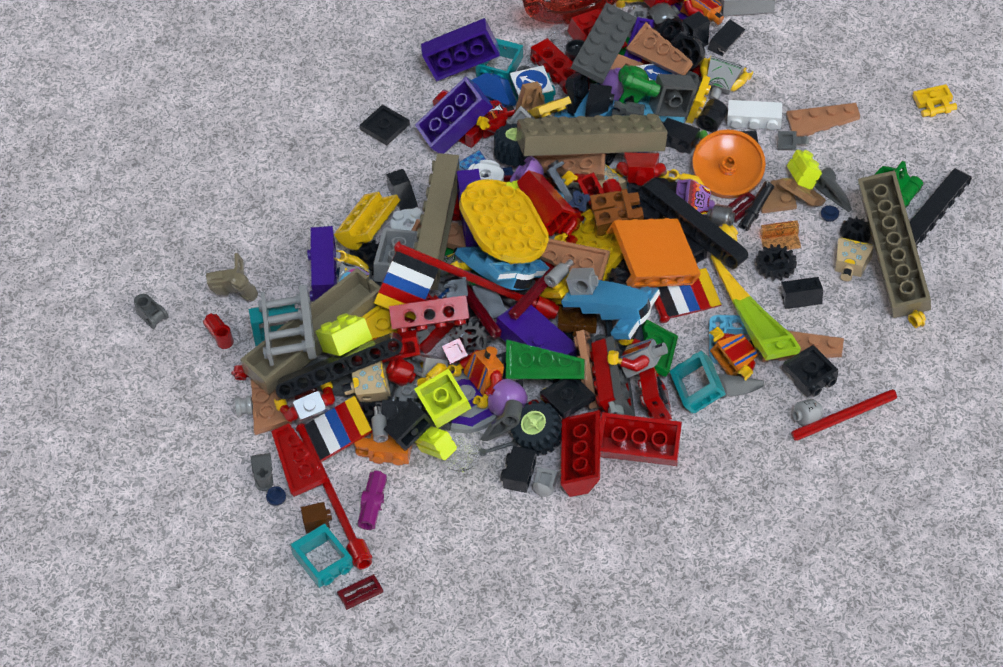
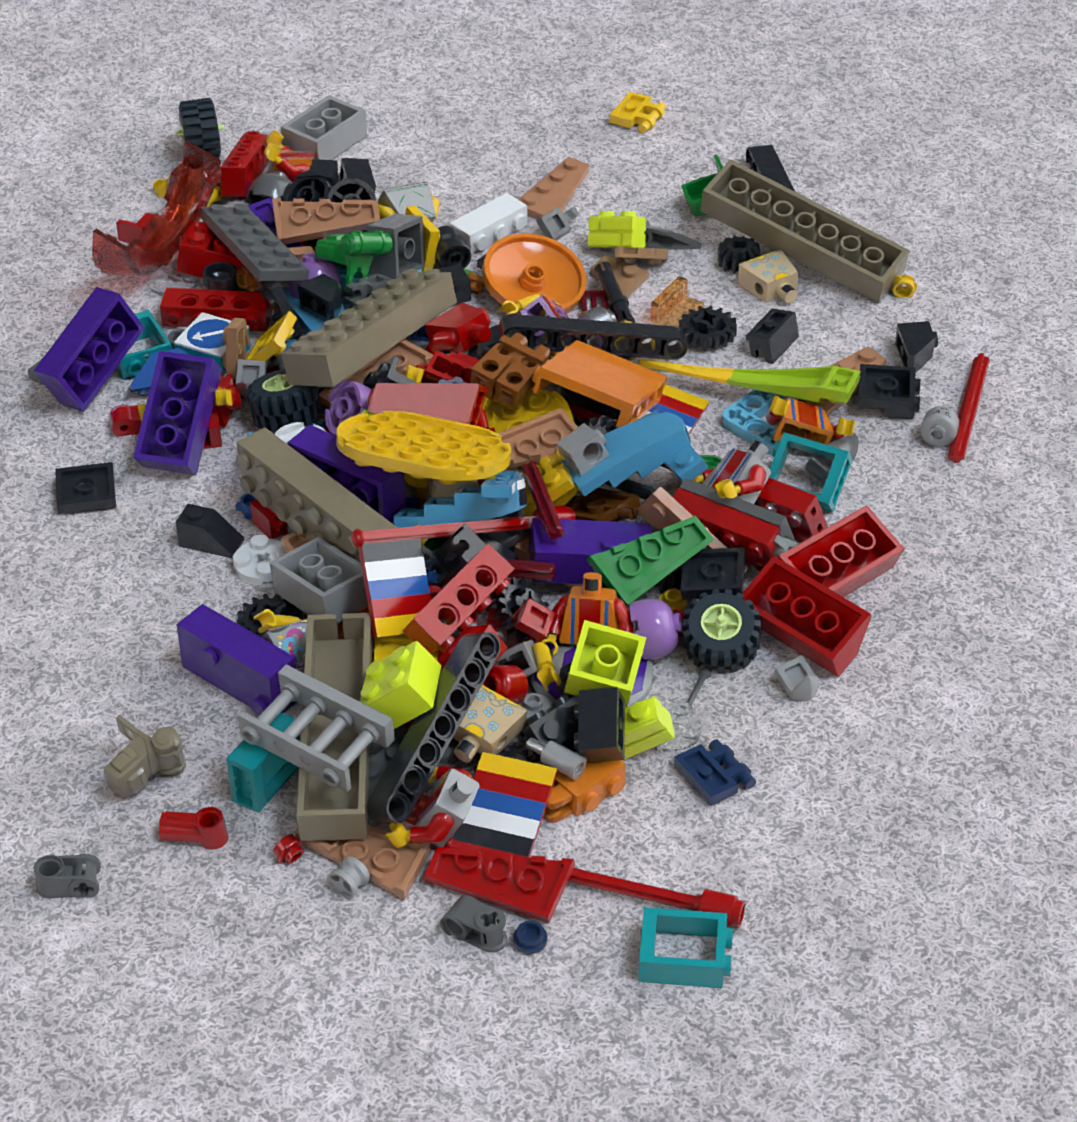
camera: 50 degrees left, 10 degrees down
(315, 516) = (614, 917): reddish brown brick -> none
(365, 219) = (221, 578): yellow brick -> none
(367, 592) = (771, 970): dark red tile -> none
(371, 500) = (649, 847): magenta piece -> none
(442, 489) = (708, 776): none -> dark blue plate
(504, 422) = (686, 645): dark grey piece -> none
(519, 469) = (756, 688): black brick -> none
(558, 273) = (546, 461): light grey piece -> none
(829, 213) = (688, 258): dark blue plate -> none
(866, 358) = (915, 343): none -> black slope

